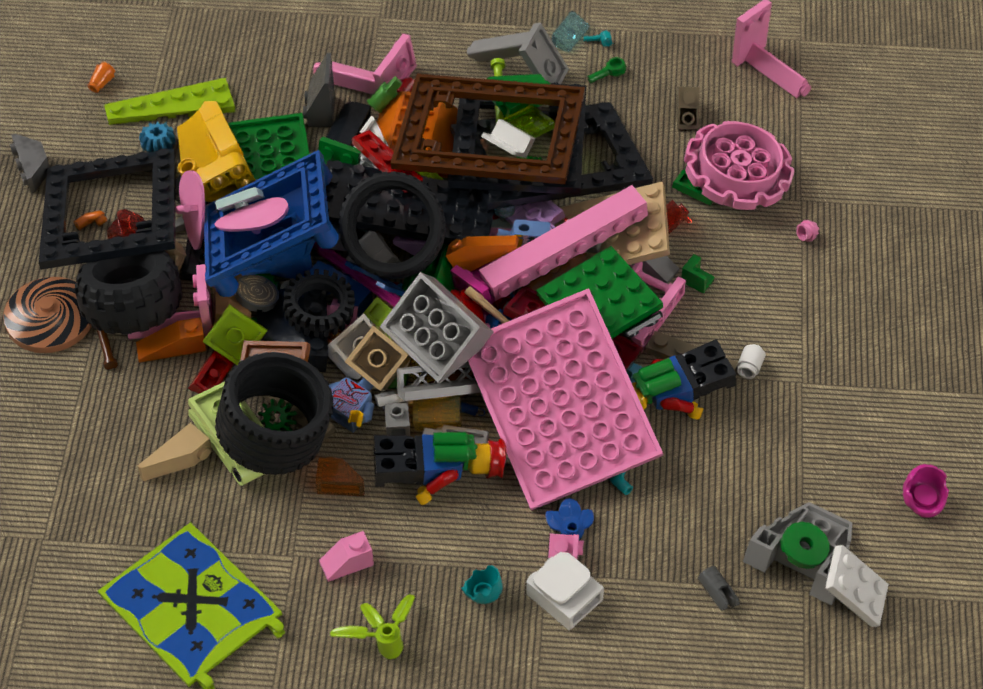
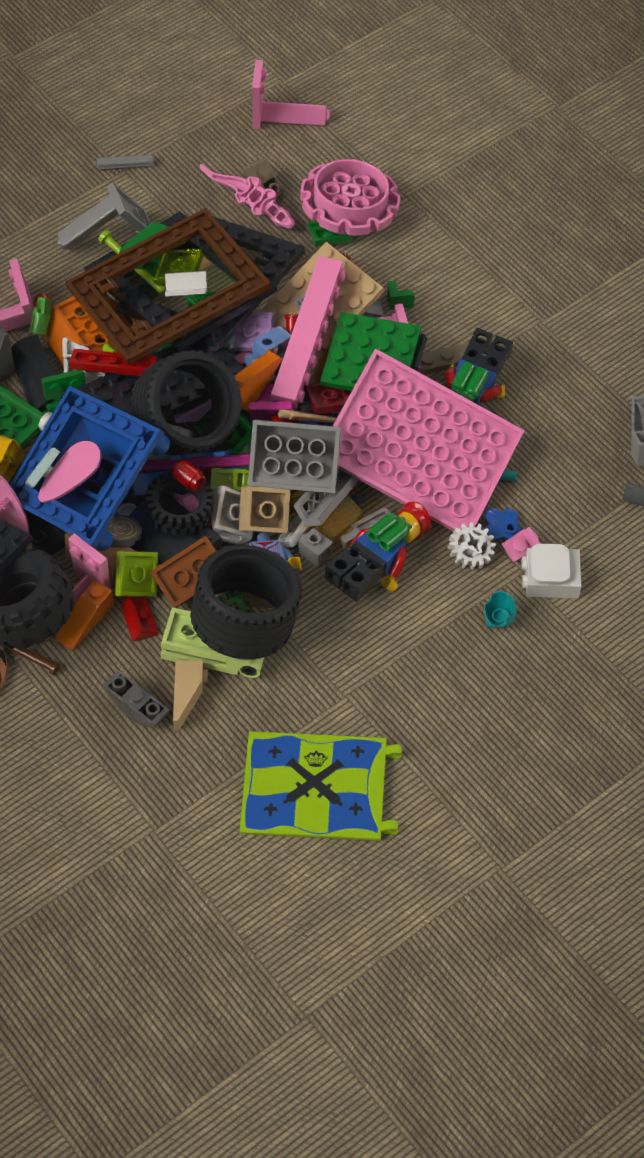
camera: 45 degrees left, 5 degrees up
(130, 428) = (135, 701): none -> flat silver slope
(338, 478) = (320, 617): clear orange slope -> none
(339, 284) = (188, 475): none -> red brick
(347, 557) = (388, 665): bright pink slope -> none
(387, 635) = (481, 693): lime plant -> none
(530, 519) = (475, 538): none -> white gear
(569, 32) = (116, 175): clear light blue slope -> none
(596, 22) = (124, 162): none -> light grey axle
(604, 37) = (146, 168): teal hand -> none
(614, 67) = (177, 185): green plate -> none
(664, 115) = (251, 193): none -> bright pink animal
(750, 361) = (498, 326): white brick -> none
(807, 231) = (437, 214): bright pink plate -> none

